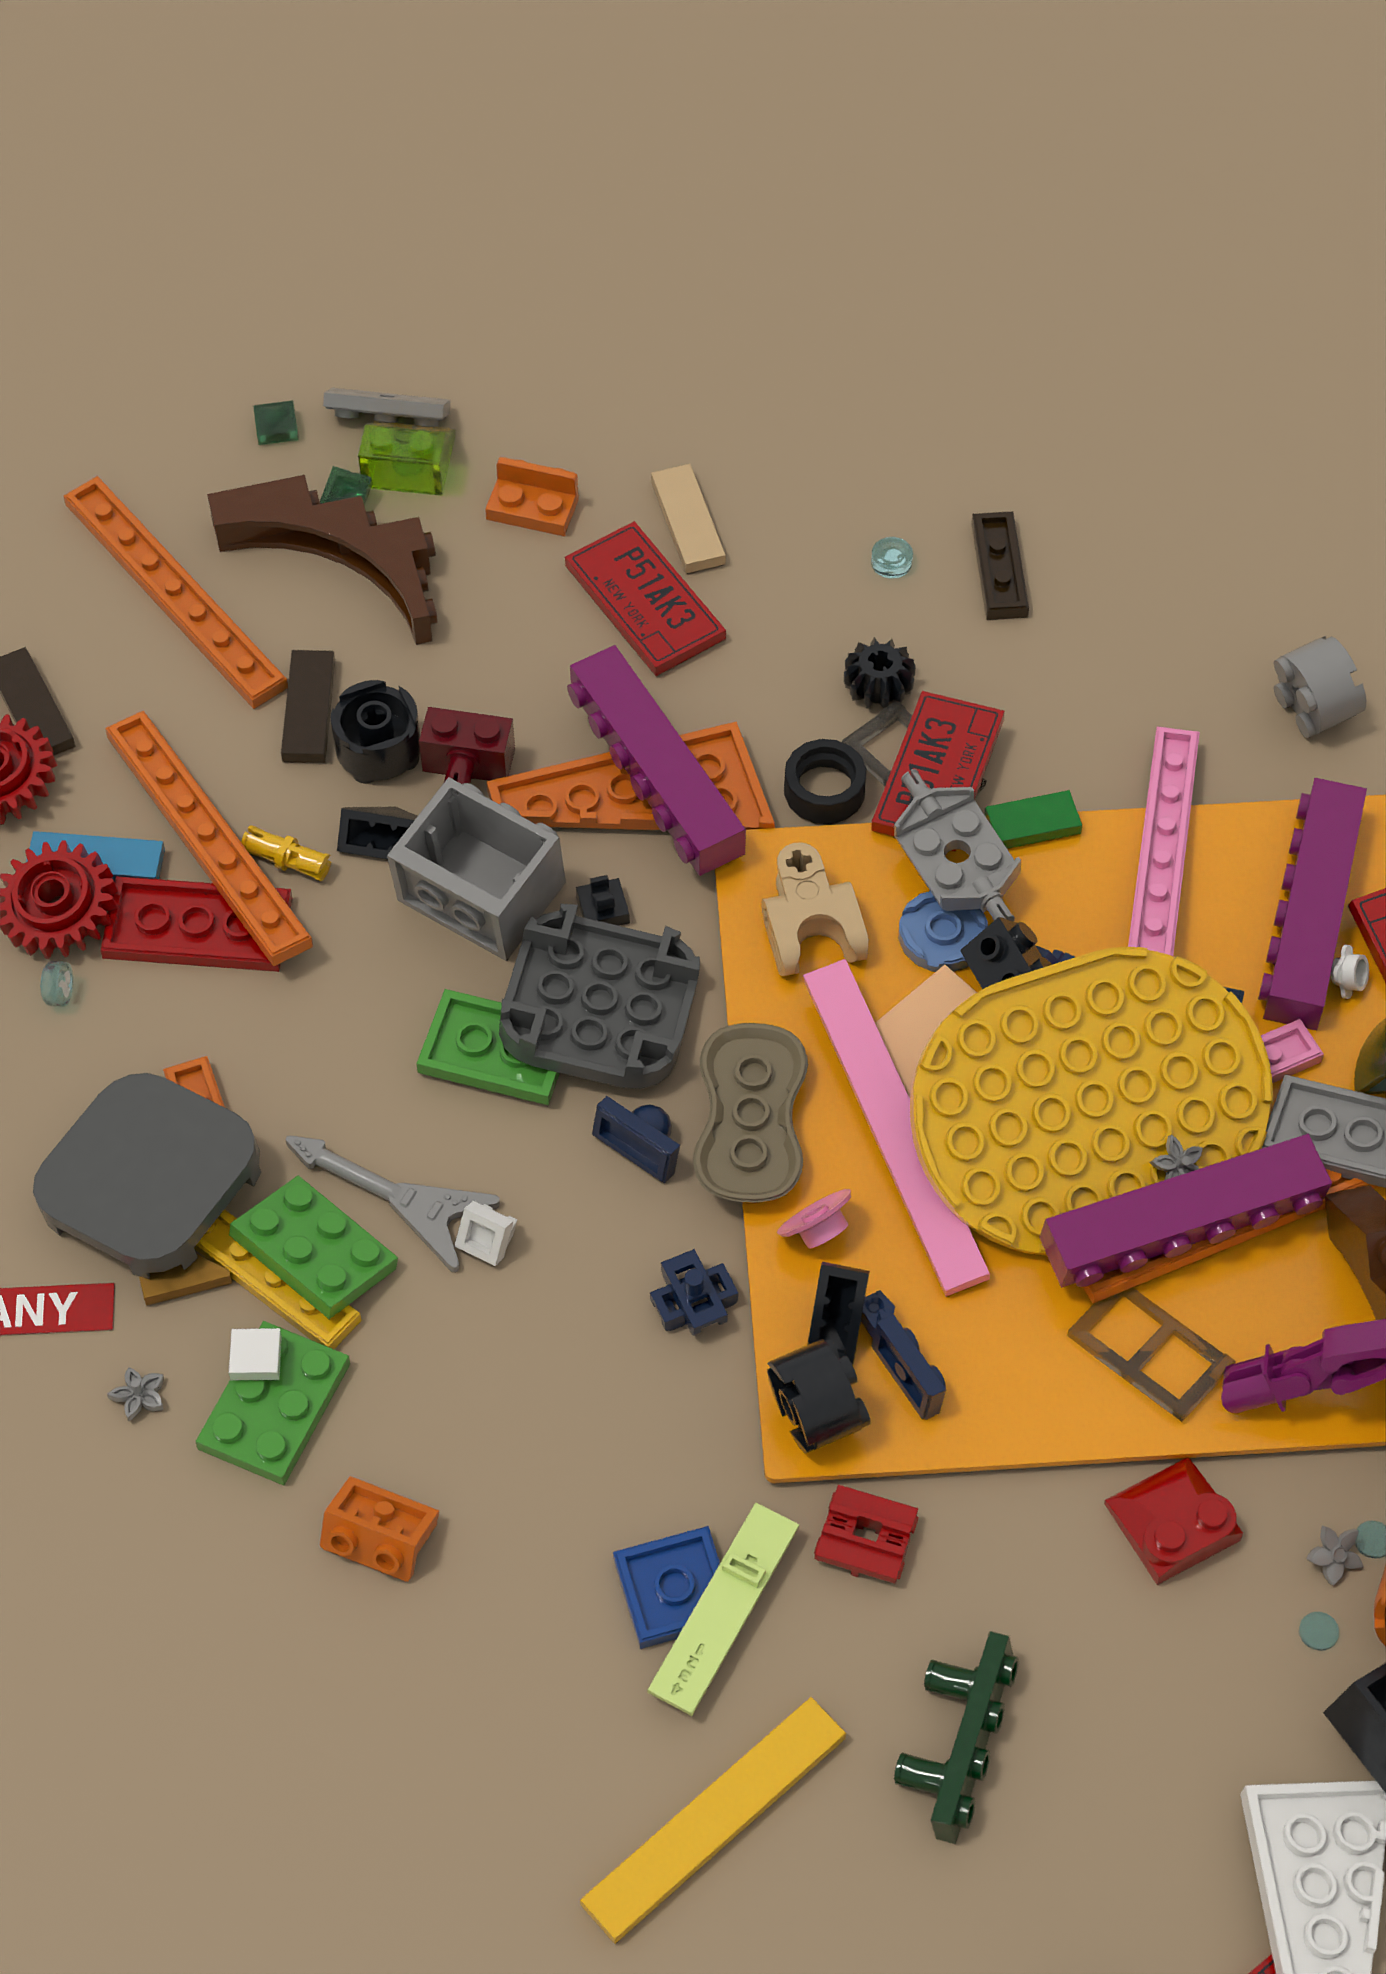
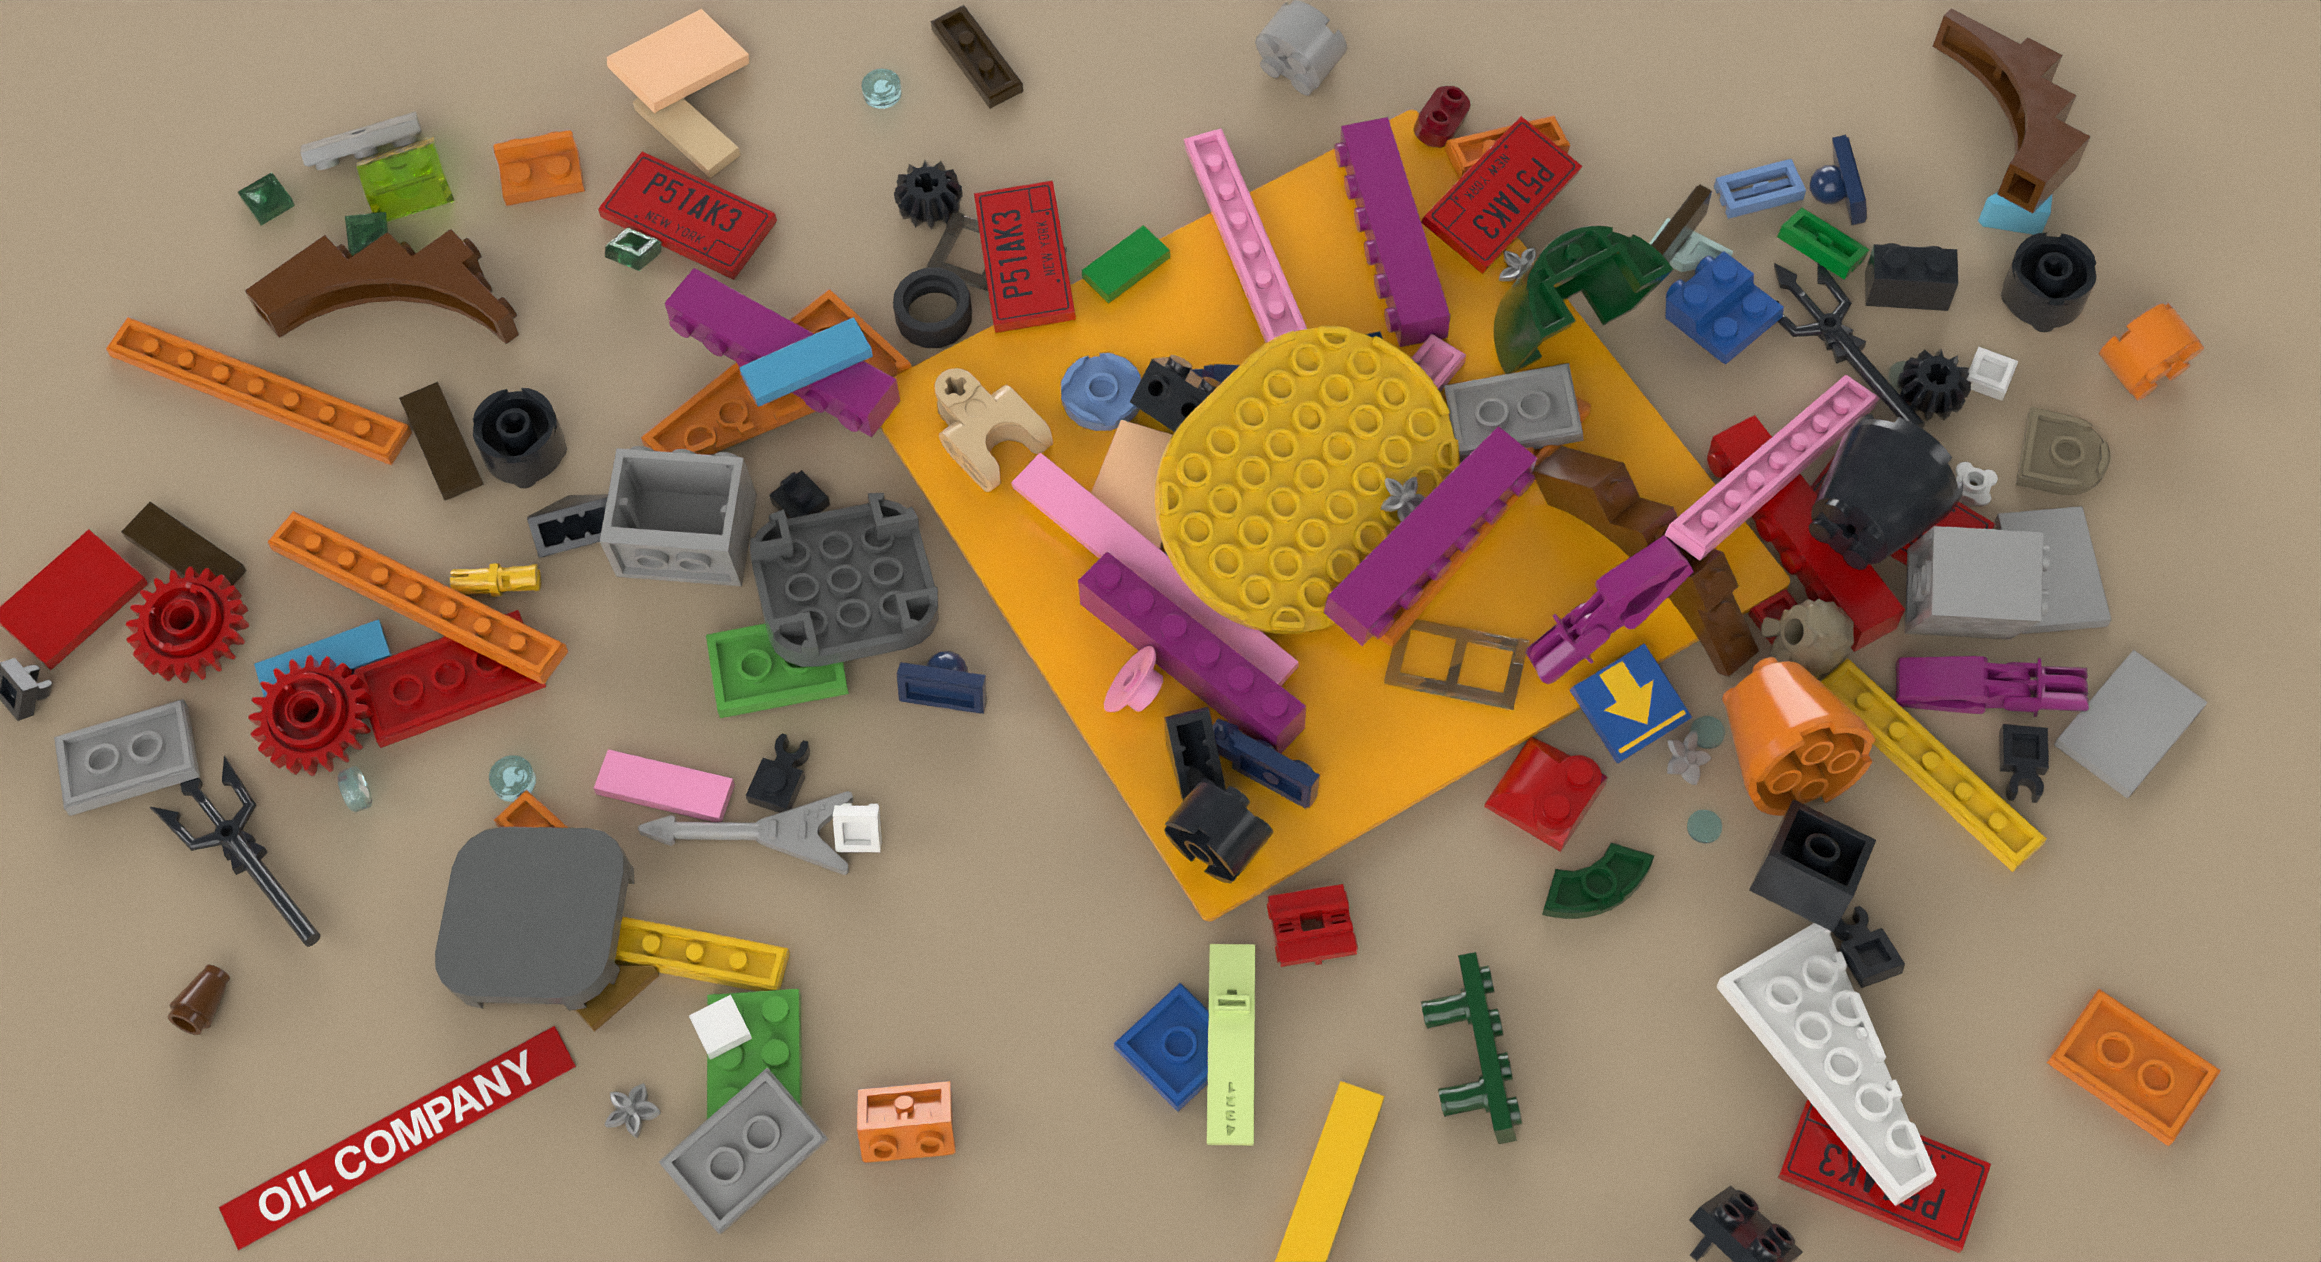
camera: 25 degrees left, 5 degrees up
(201, 1038) = (511, 777): none -> clear light blue tile
(214, 1479) = (743, 1151): none -> light grey tile
(313, 1246) = (715, 910): bright green plate -> none
(332, 1111) = (664, 786): none -> bright pink tile
(440, 1156) = (779, 781): none -> black plate
(466, 745) = (605, 415): dark red brick -> none
(576, 607) = (633, 249): none -> clear green tile
(668, 775) = (805, 361): none -> dark azure tile
(693, 1287) = (1059, 792): dark blue piece -> none
(713, 452) = (677, 60): none -> light nougat tile
(750, 1135) = (1039, 643): dark tan plate -> none
(889, 1218) = (1191, 653): none -> magenta brick
(952, 820) = (1062, 294): light grey plate -> none
(1176, 1637) = (1597, 887): none -> dark green tile
(1306, 1472) = (1630, 703): none -> blue tile
(1350, 972) = (1452, 276): white plate -> none

